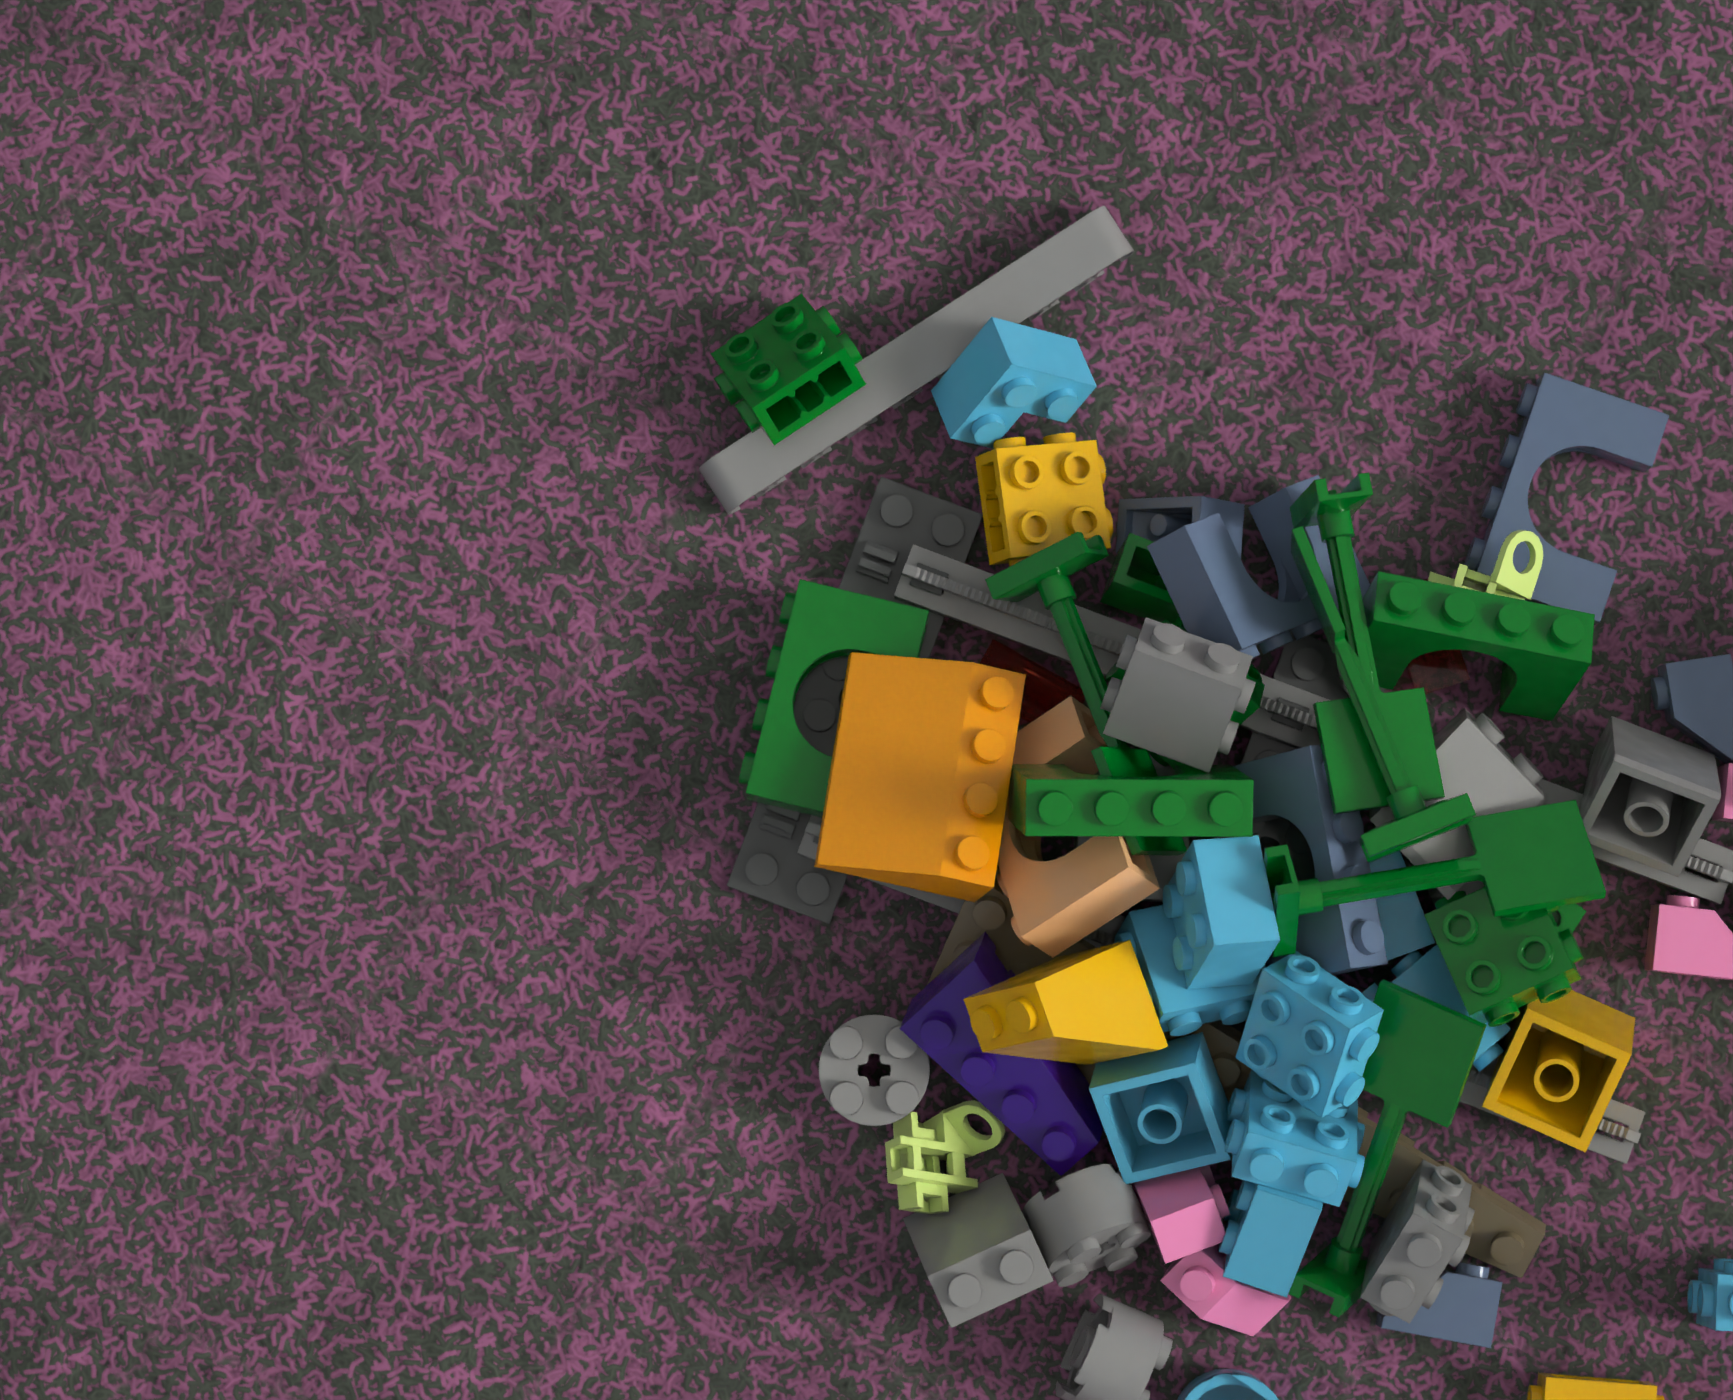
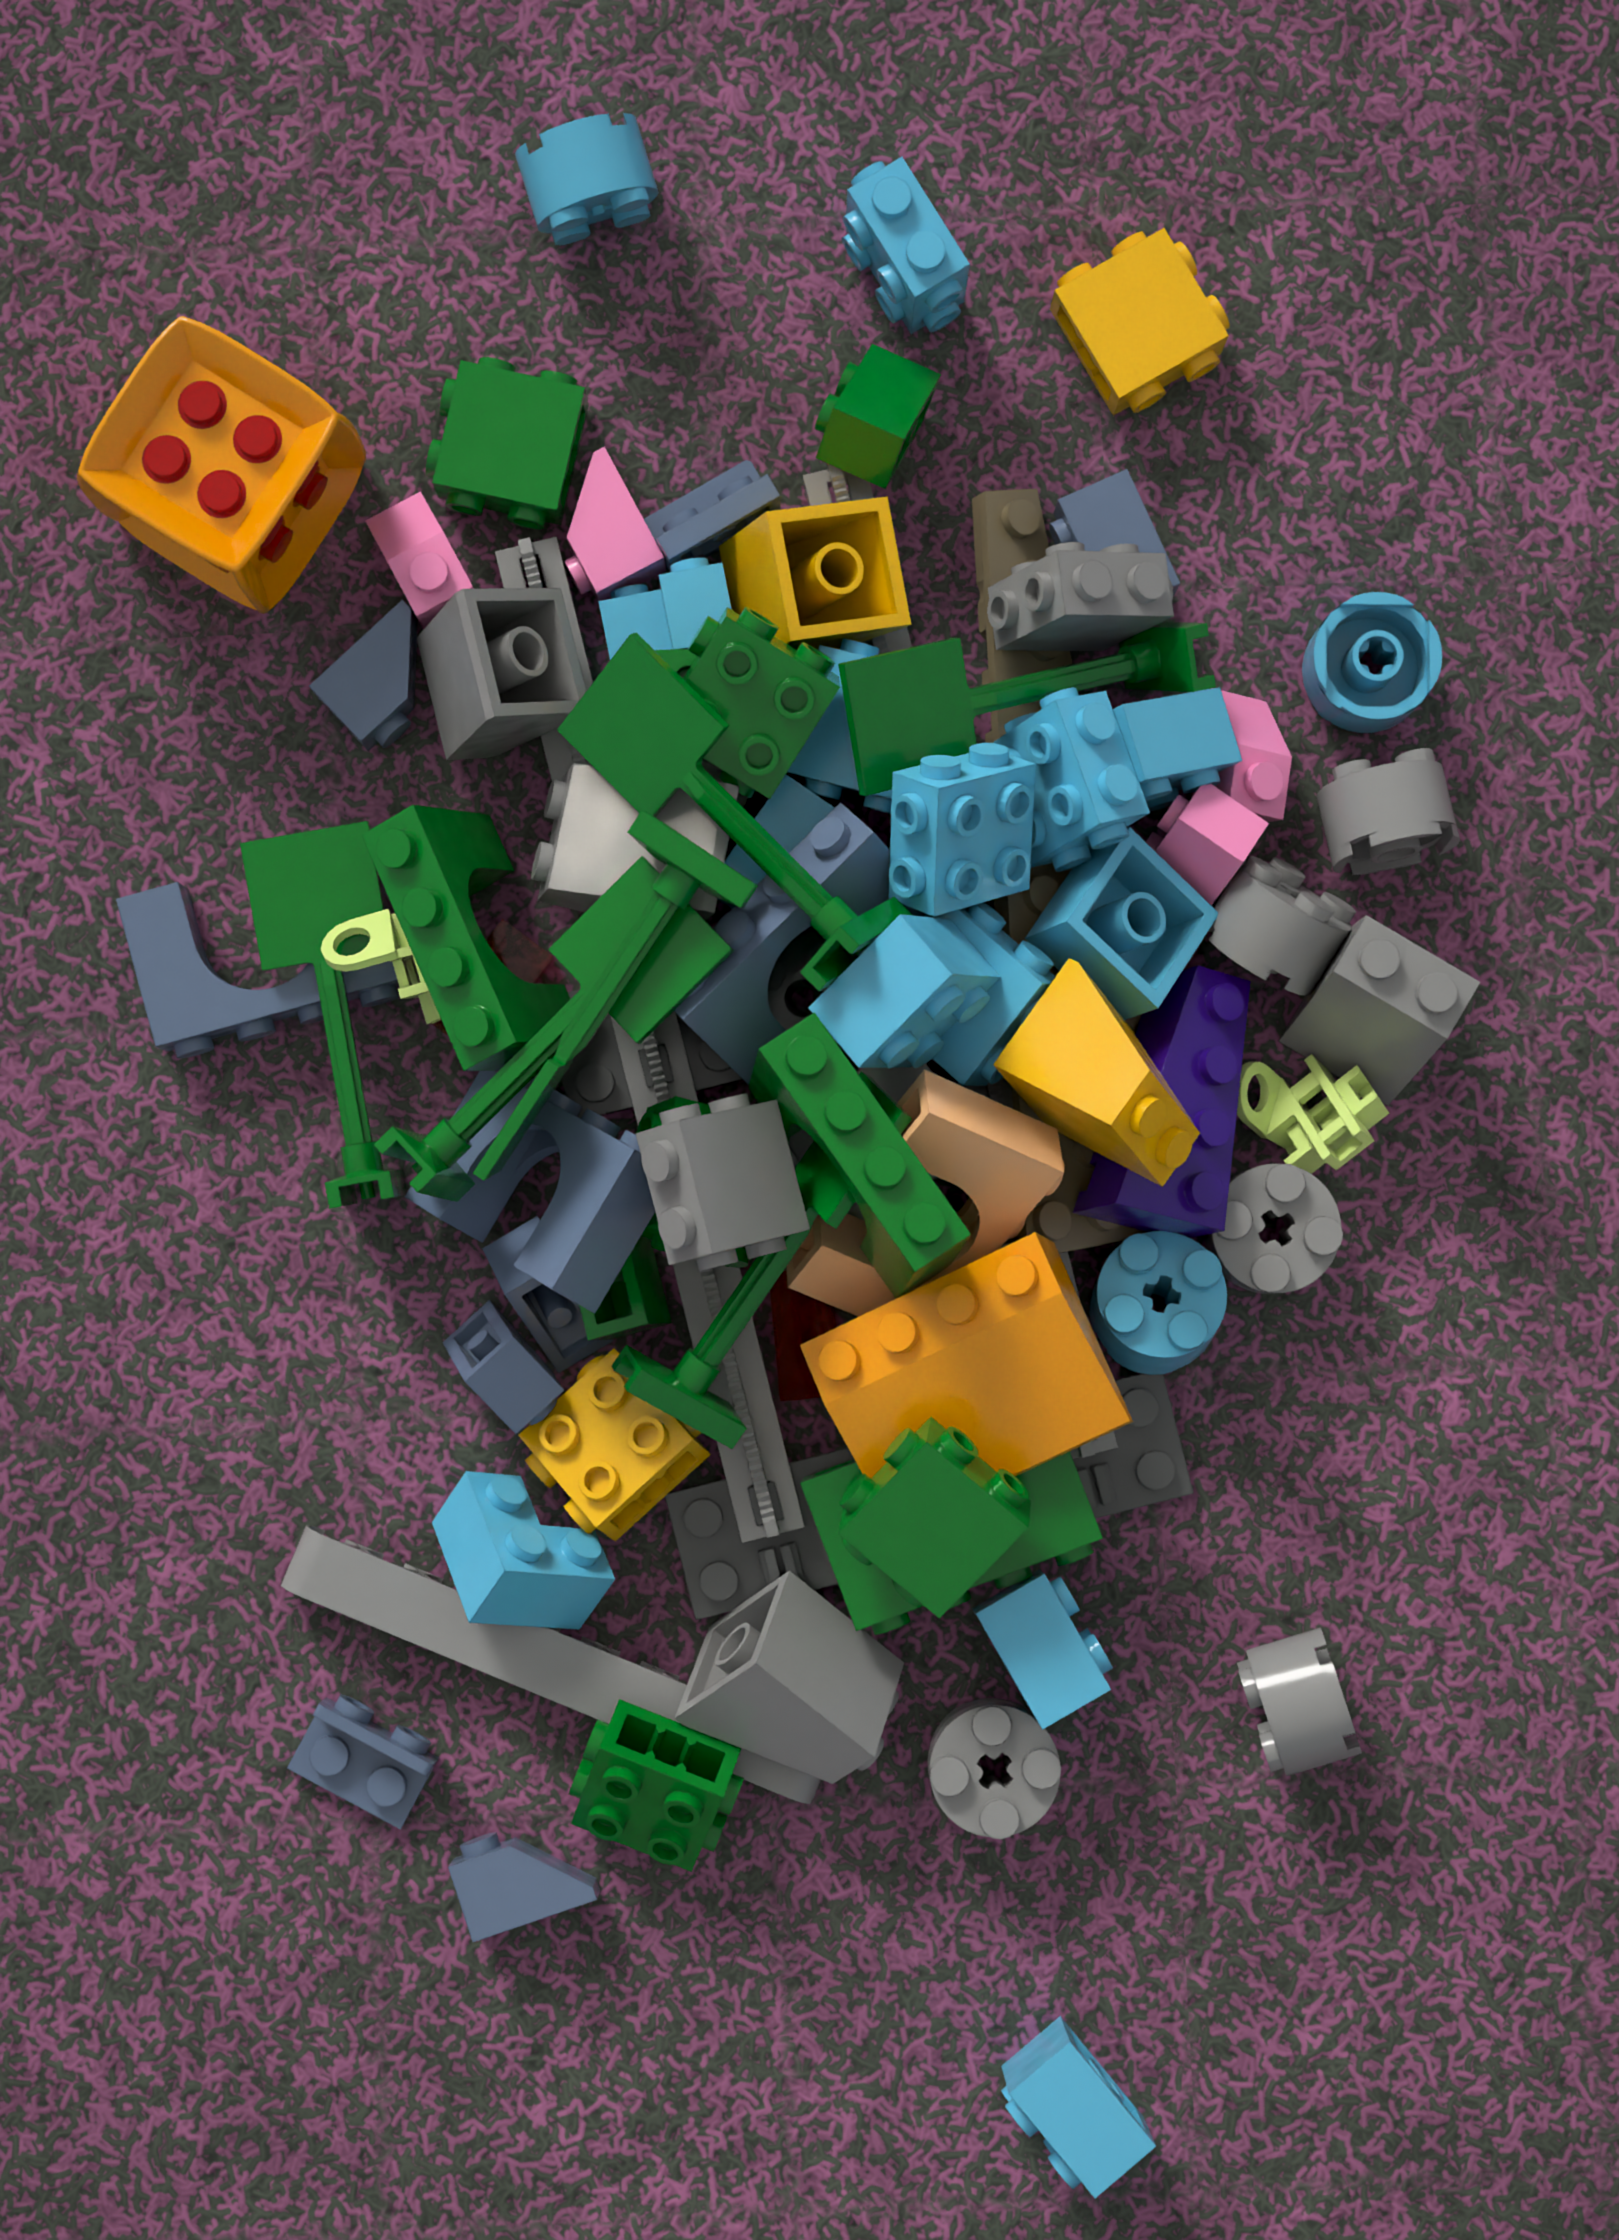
camera: 125 degrees left, 0 degrees up
(367, 505) = (1077, 2108): none -> medium azure brick
(533, 854) = (1300, 1702): none -> light grey brick
(608, 596) = (993, 1805): none -> light grey brick
(697, 700) = (1042, 1648): none -> medium azure brick
(786, 226) = (514, 1885): none -> sand blue slope
(792, 512) = (793, 1683): none -> light grey slope
(846, 683) = (933, 1516): none -> green brick
(850, 961) = (1191, 1289): none -> medium azure brick
(943, 180) = (363, 1760): none -> sand blue bracket
(1149, 461) = (503, 1368): none -> sand blue slope
(1582, 543) = (297, 895): none -> green piece
(1607, 943) = (668, 615): none -> medium azure brick
(1653, 1194) = (875, 415): none -> green brick
(1661, 1027) = (712, 513): none -> sand blue bracket

